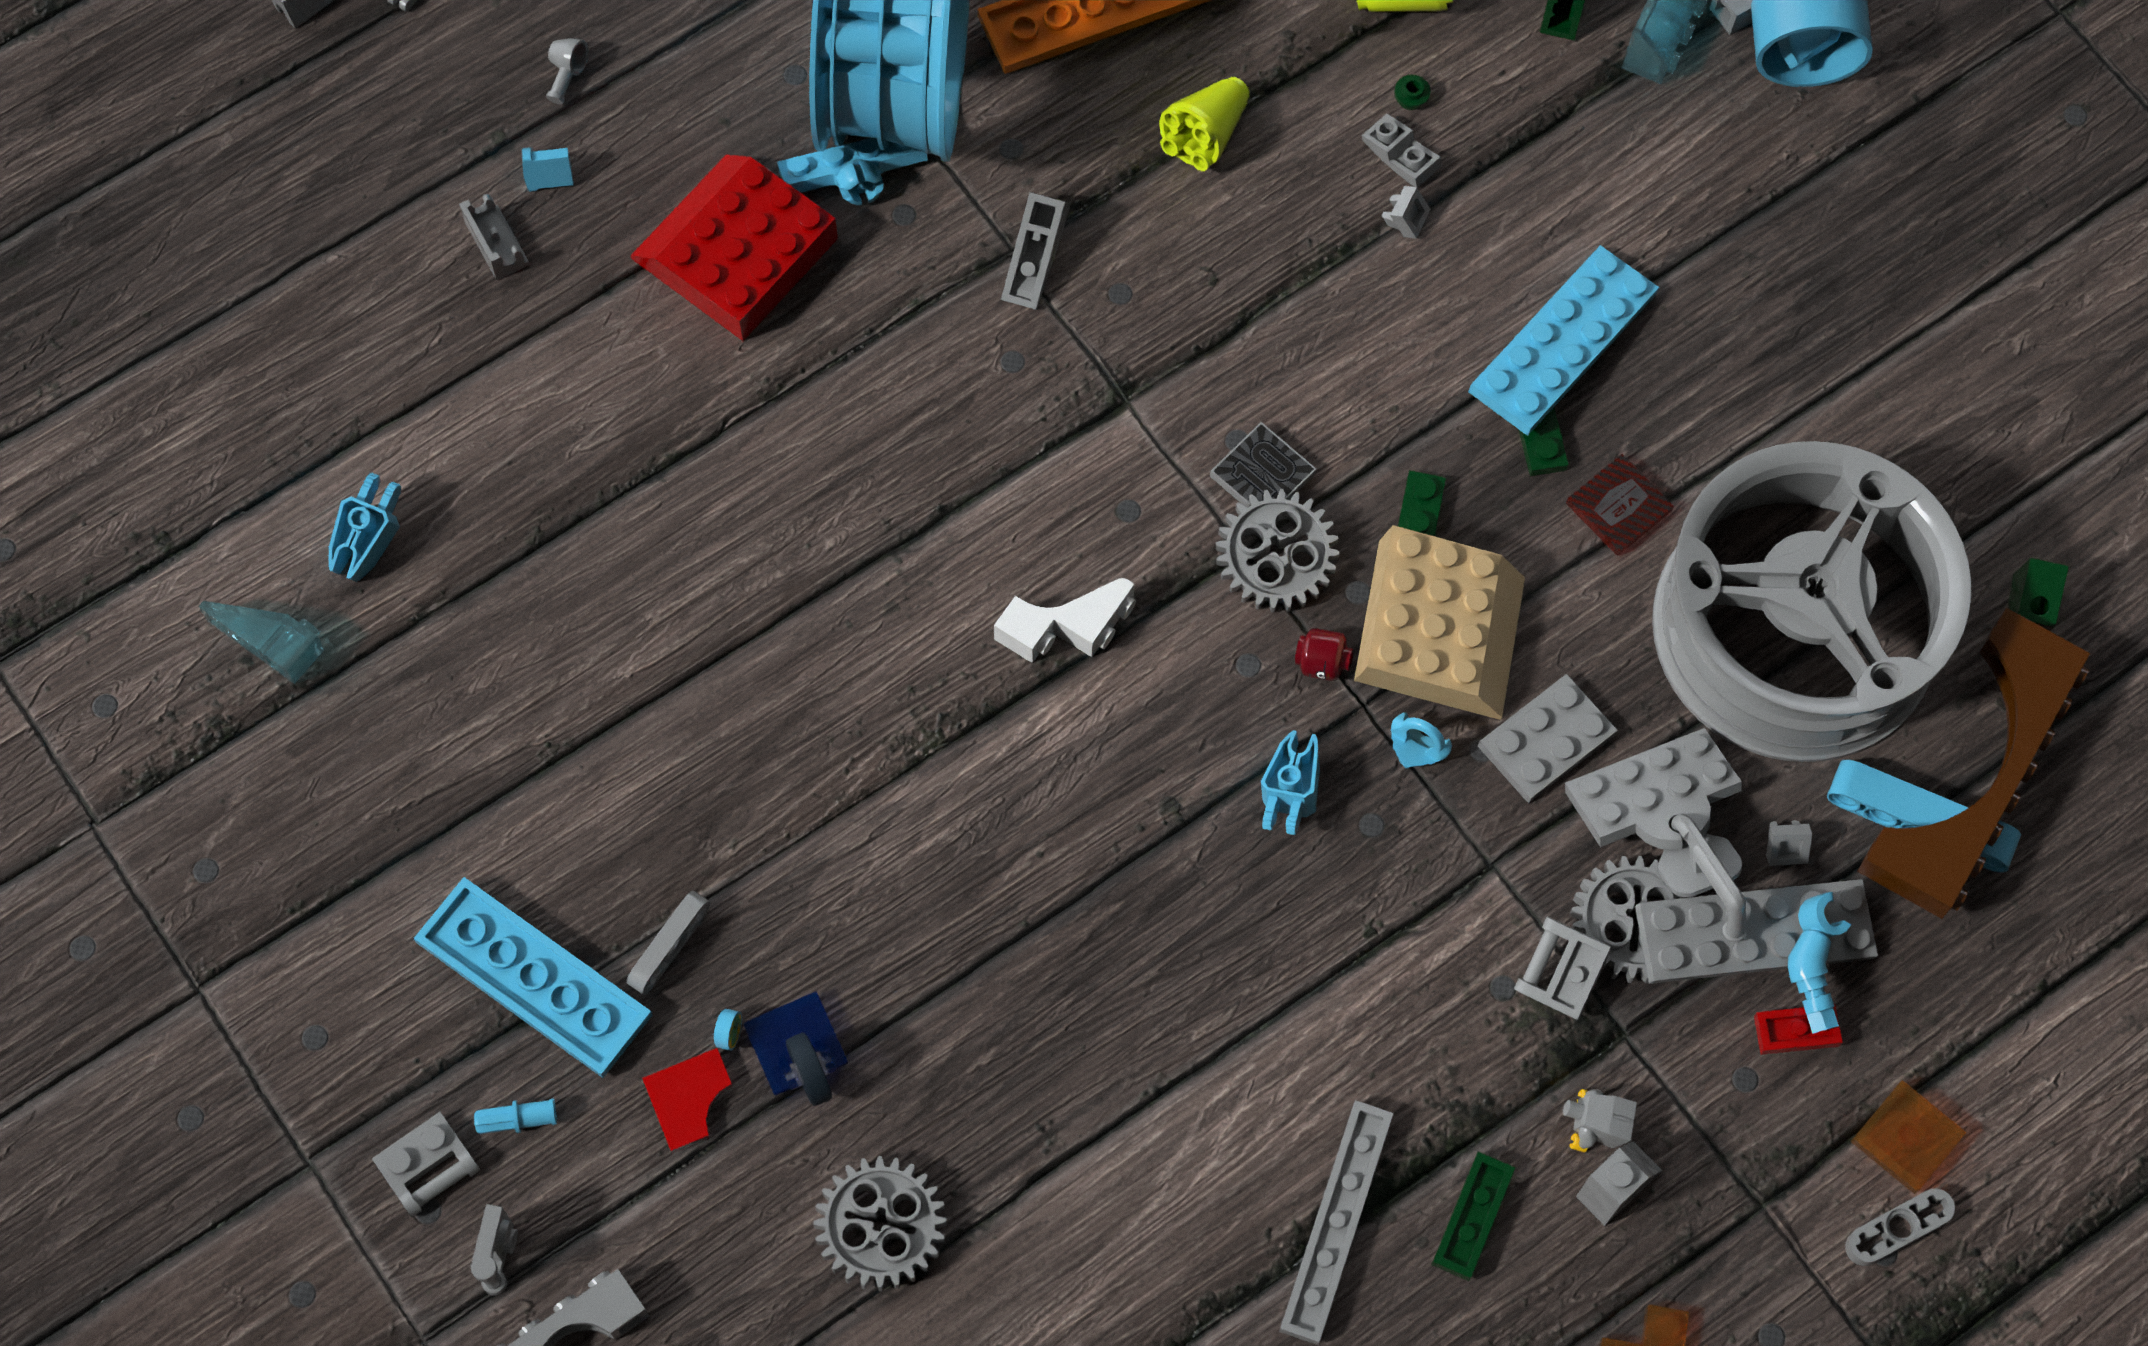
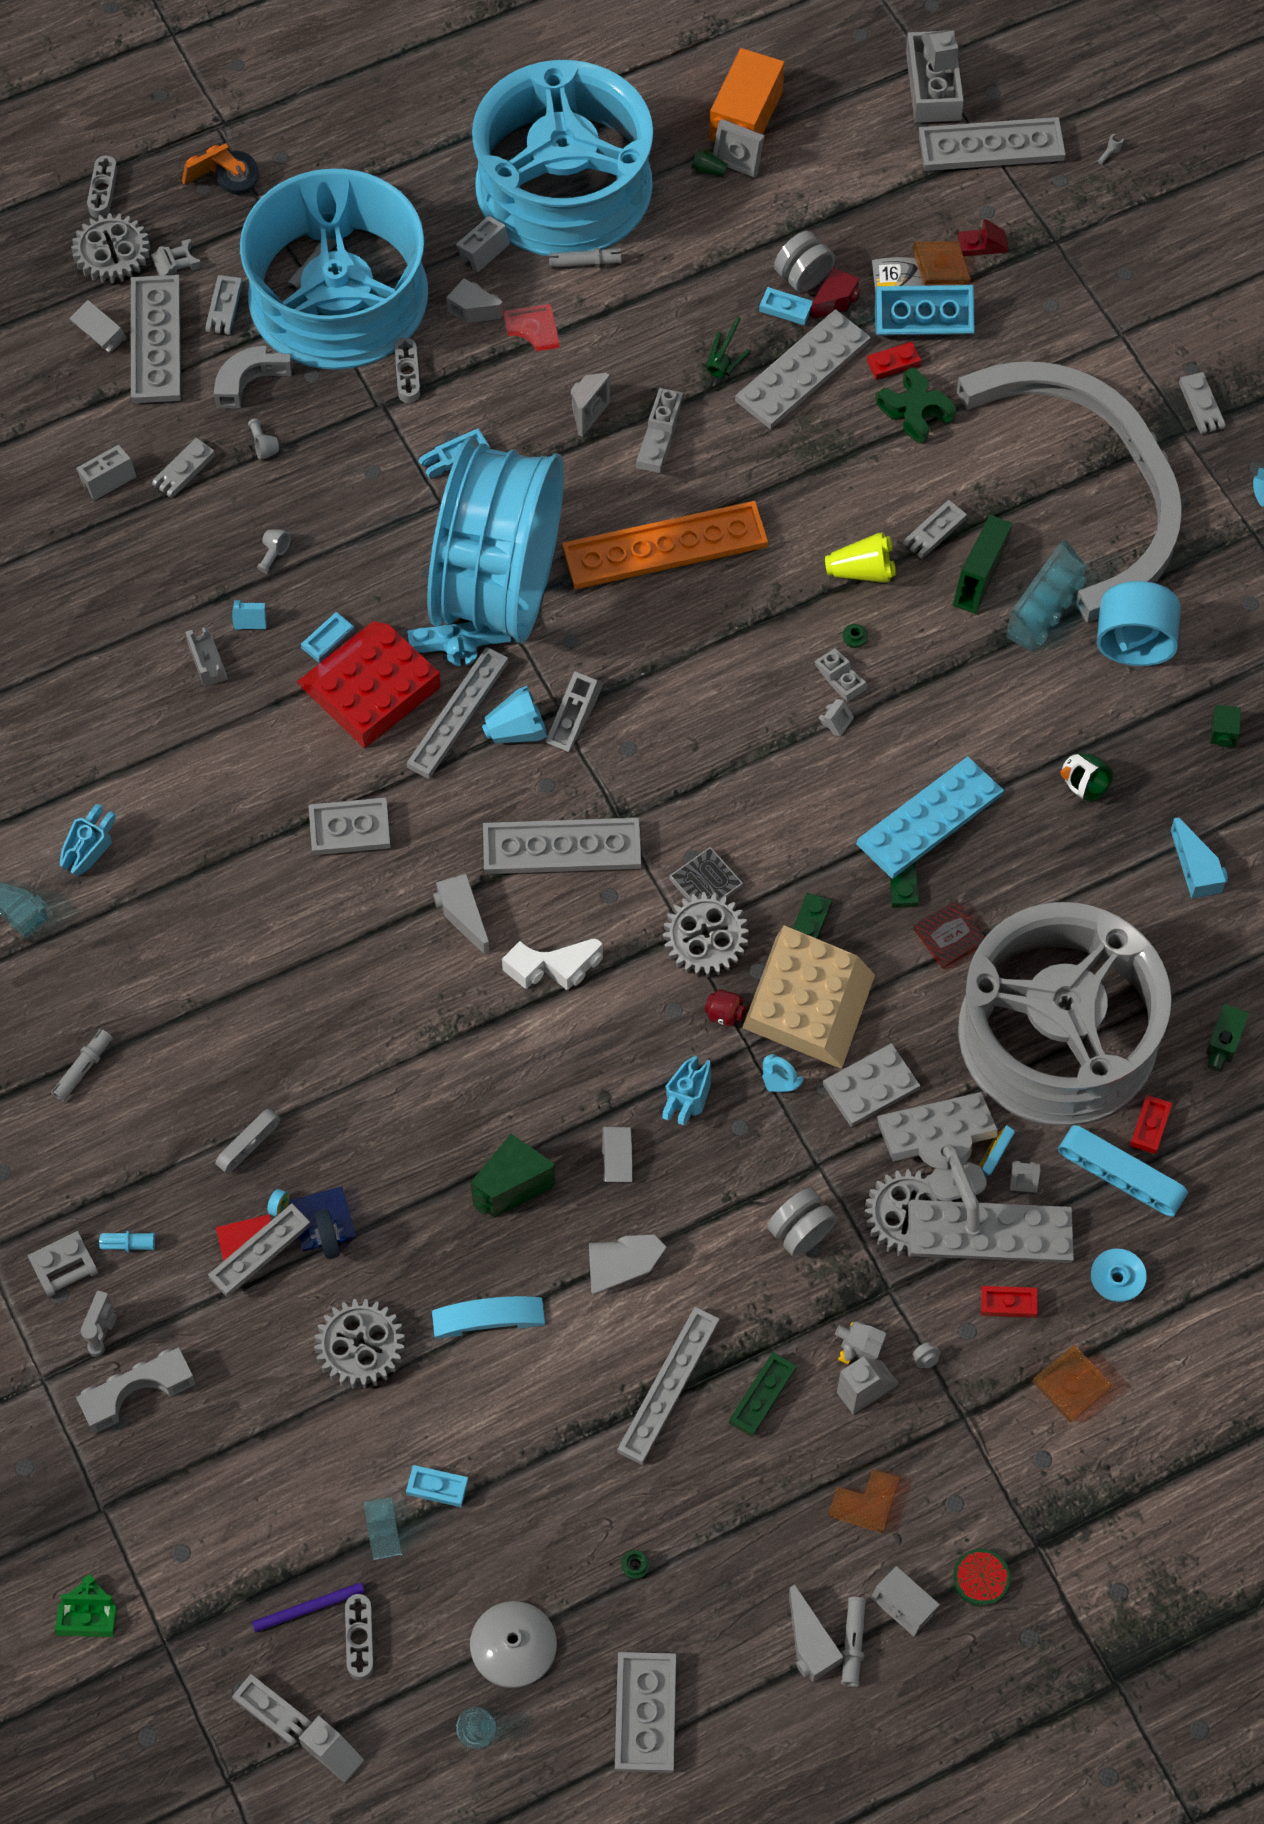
camera: 10 degrees right, 5 degrees down
(415, 848) = (88, 1056): none -> light grey pin
(533, 977) = (153, 1151): medium azure plate -> none
(664, 186) = (327, 637): none -> medium azure tile
(712, 1105) = (259, 1250): none -> light grey plate
(740, 458) = (349, 826): none -> light grey plate
(868, 273) = (457, 712): none -> light grey plate
(922, 560) = (461, 909): none -> light grey slope
(954, 273) = (515, 719): none -> medium azure cone
(1049, 447) = (561, 845): none -> light grey plate
(1058, 1153) = (487, 1314): none -> medium azure slope
(1062, 947) = (511, 1178): none -> dark green slope
(1203, 122) = (705, 638): neon yellow cone -> none
(1206, 890) = (617, 1154): none -> light grey slope
(1240, 1046) = (622, 1260): none -> light grey panel
(1484, 951) = (802, 1222): none -> light grey wheel
(1574, 974) = (860, 1241): light grey plate -> none
(1696, 1125) = (926, 1355): none -> light grey plate
(1741, 811) = (996, 1150): none -> medium azure tile
(1774, 252) = (1087, 776): none -> dark green piece
(1809, 960) = (1020, 1256): medium azure piece -> none
(1918, 1204) = (1071, 1428): light grey beam -> none
(1936, 859) = (1121, 1198): reddish brown arch -> none
(1948, 357) = (1198, 862): none -> medium azure slope
(1950, 156) = (1225, 725): none -> dark green brick
(1950, 743) = (1151, 1124): none -> red plate
(1957, 957) = (1119, 1263): none -> medium azure dish

